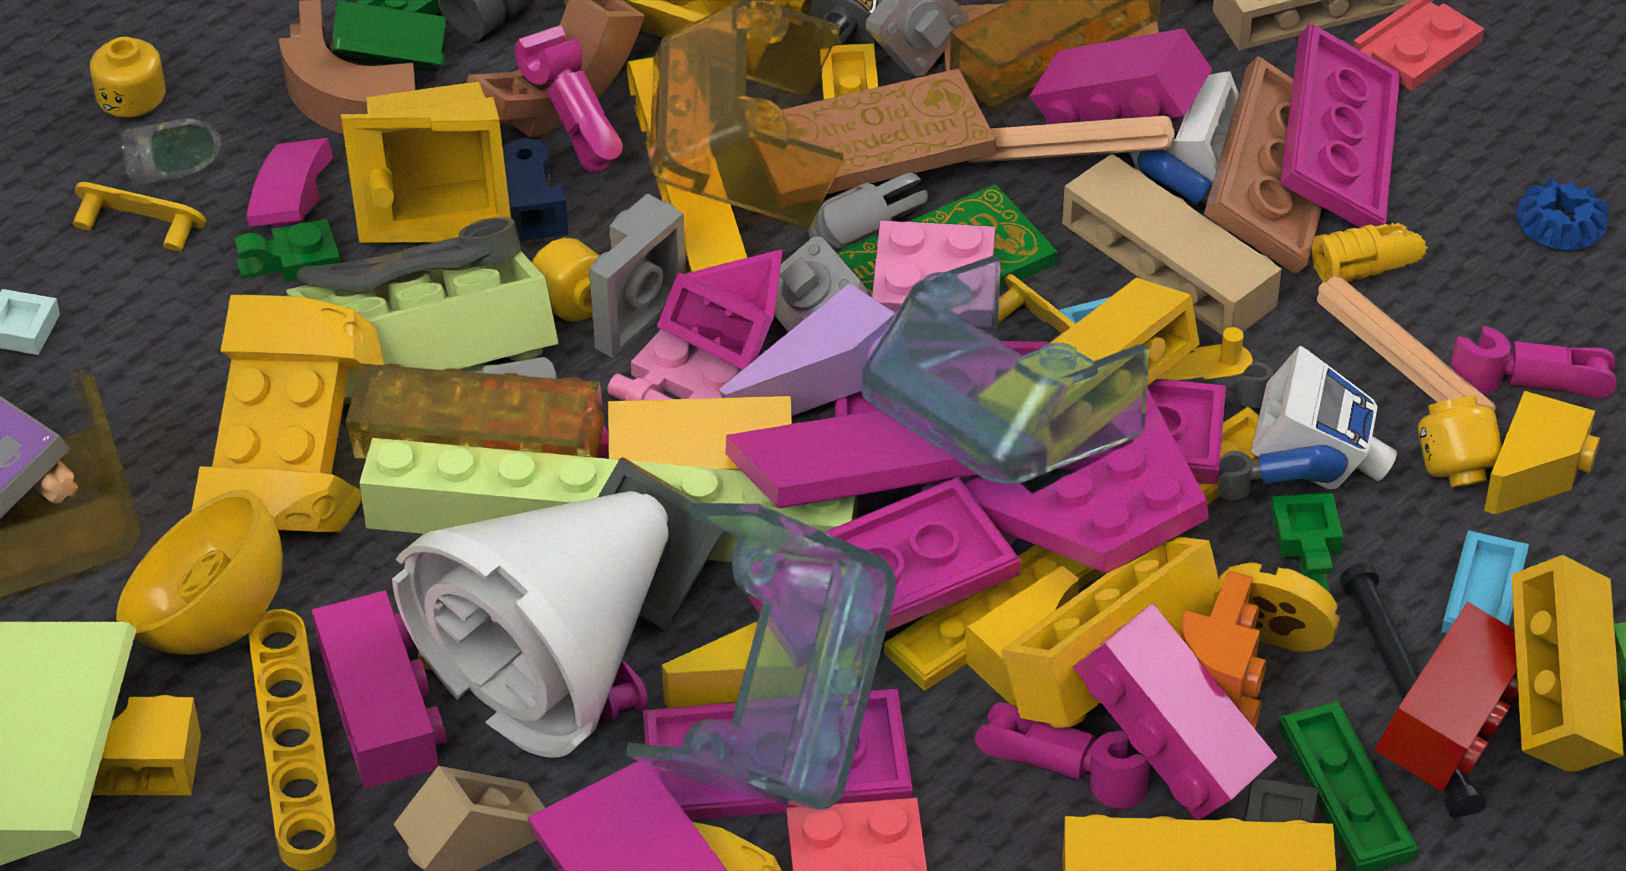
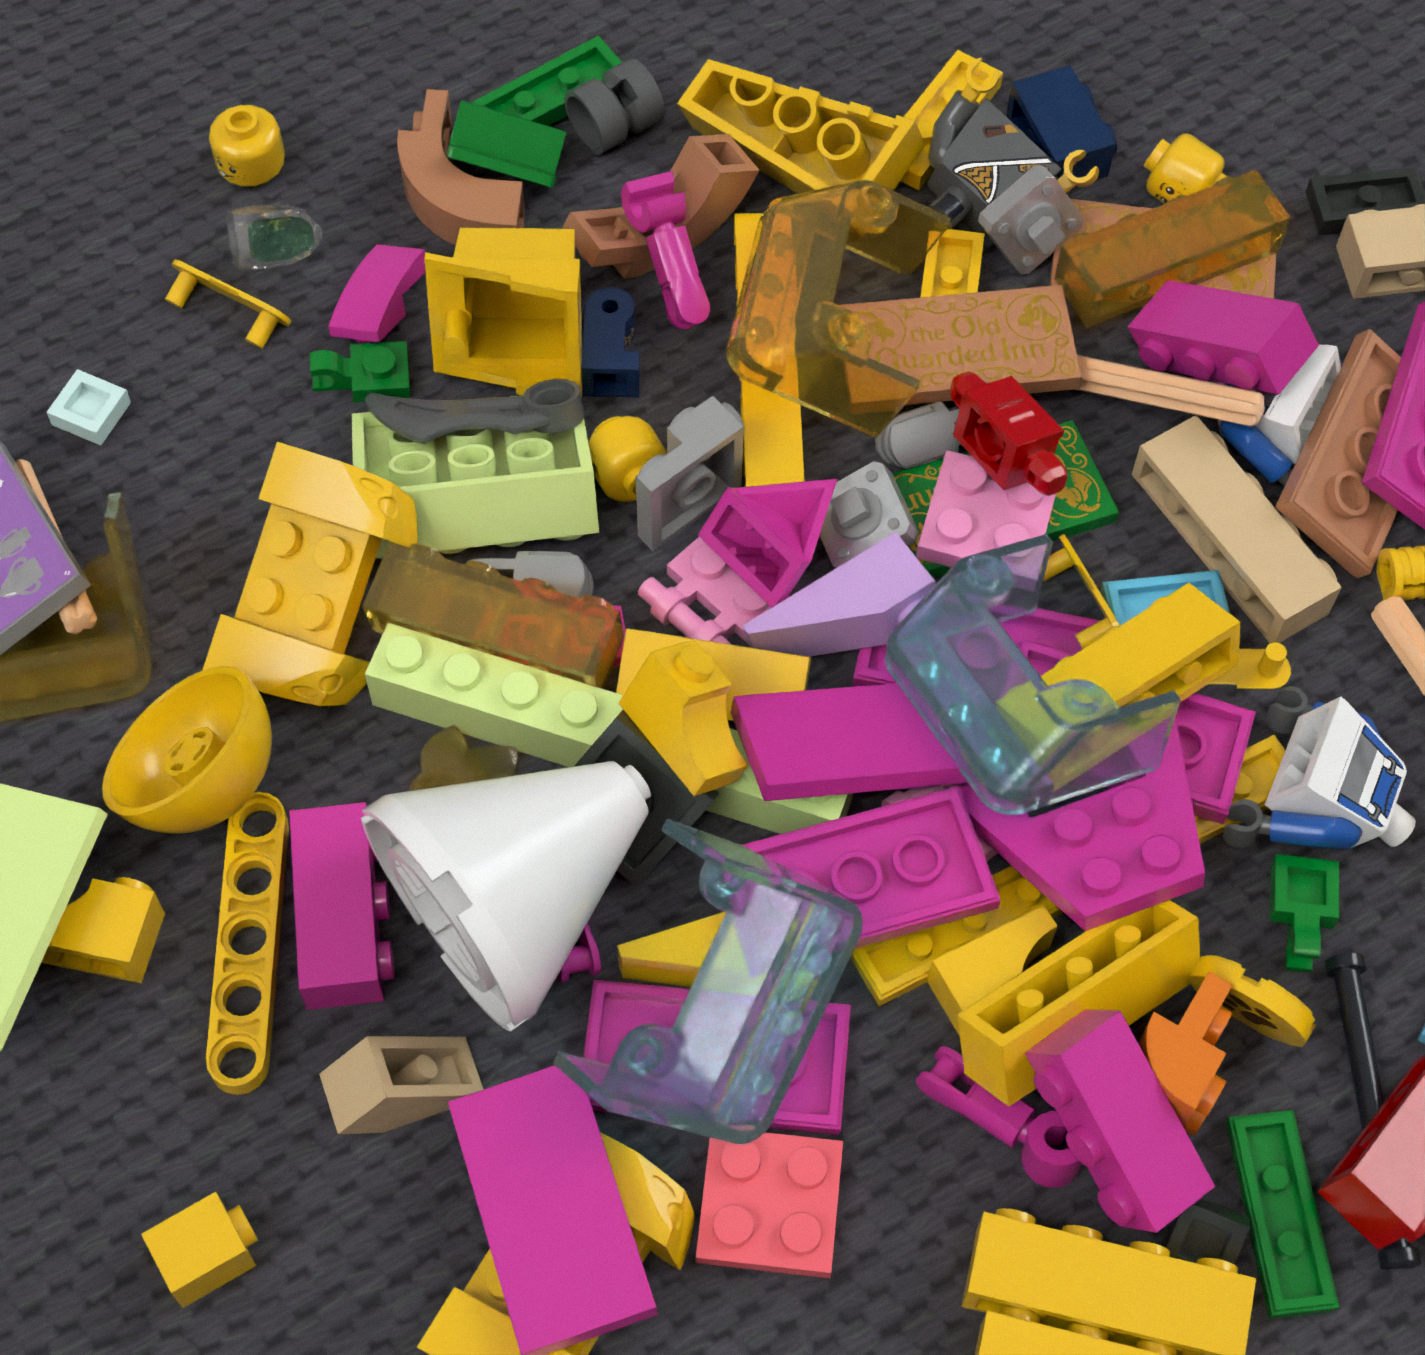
camera: 10 degrees right, 15 degrees up
(681, 443) = (683, 714): none -> yellow arch
(936, 188) = (1008, 433): none -> red piece

